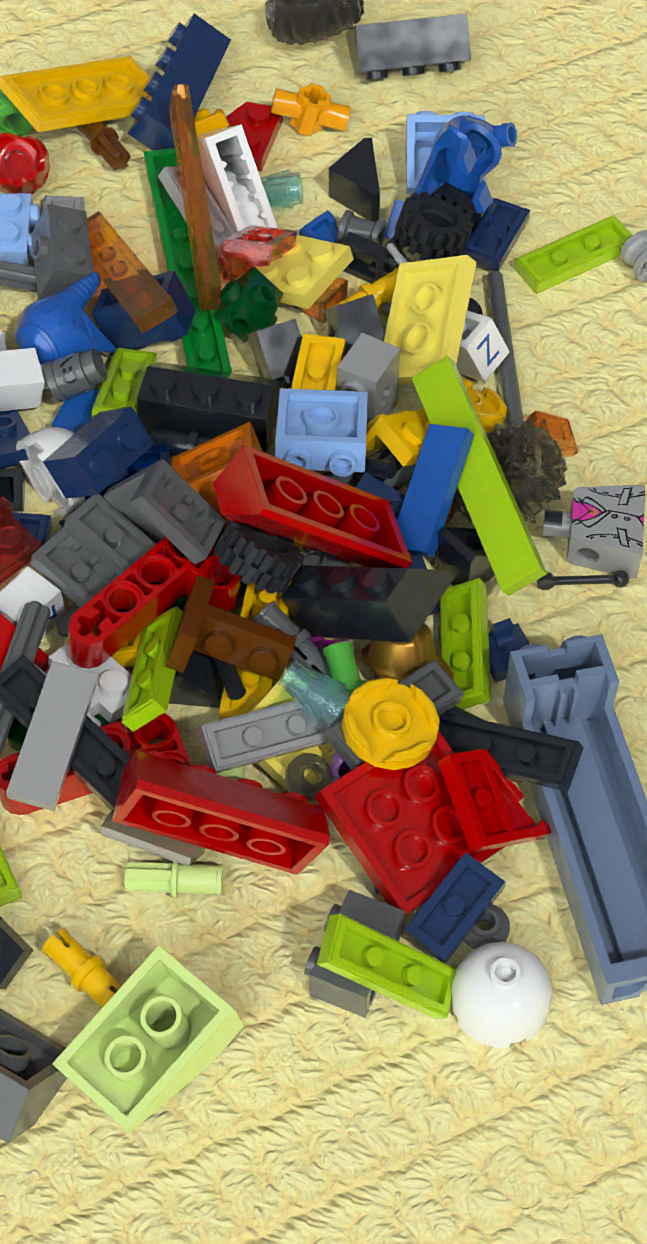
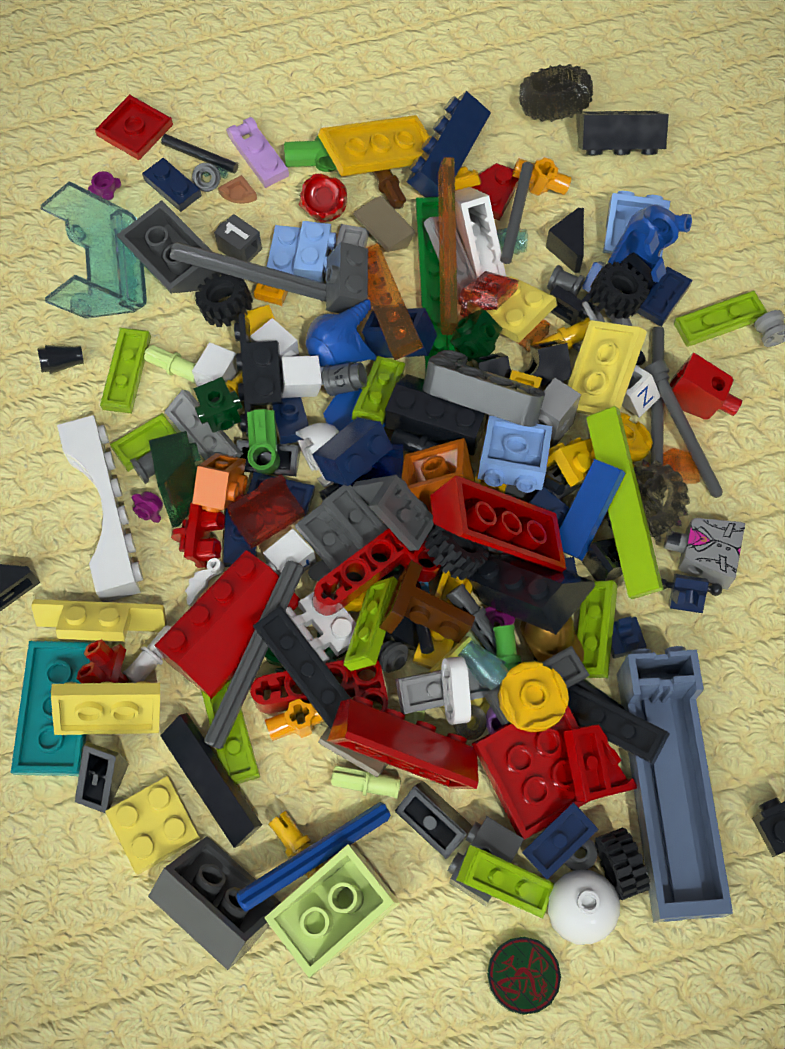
camera: 10 degrees right, 10 degrees up
(43, 823) = (286, 723): none -> light orange axle
(52, 736) = (293, 671): light grey tile -> none
(106, 188) = (385, 224): none -> dark tan slope
(107, 978) = (312, 856): none -> blue axle
(189, 712) = (392, 656): none -> dark grey plate
(275, 915) = (434, 819): none -> black slope
(282, 152) = (516, 213): none -> dark grey bar
(283, 728) = (456, 690): none -> white beam
(299, 363) = (492, 394): none -> beam
(321, 228) = (537, 276): blue tile -> none
(431, 1095) = (523, 975): none -> tile
(504, 320) = (659, 372): none -> dark grey piece
(545, 922) = (622, 863): none -> black tyre
(562, 335) = (704, 388): none -> red torso
(584, 585) = (688, 593): none -> dark blue tile

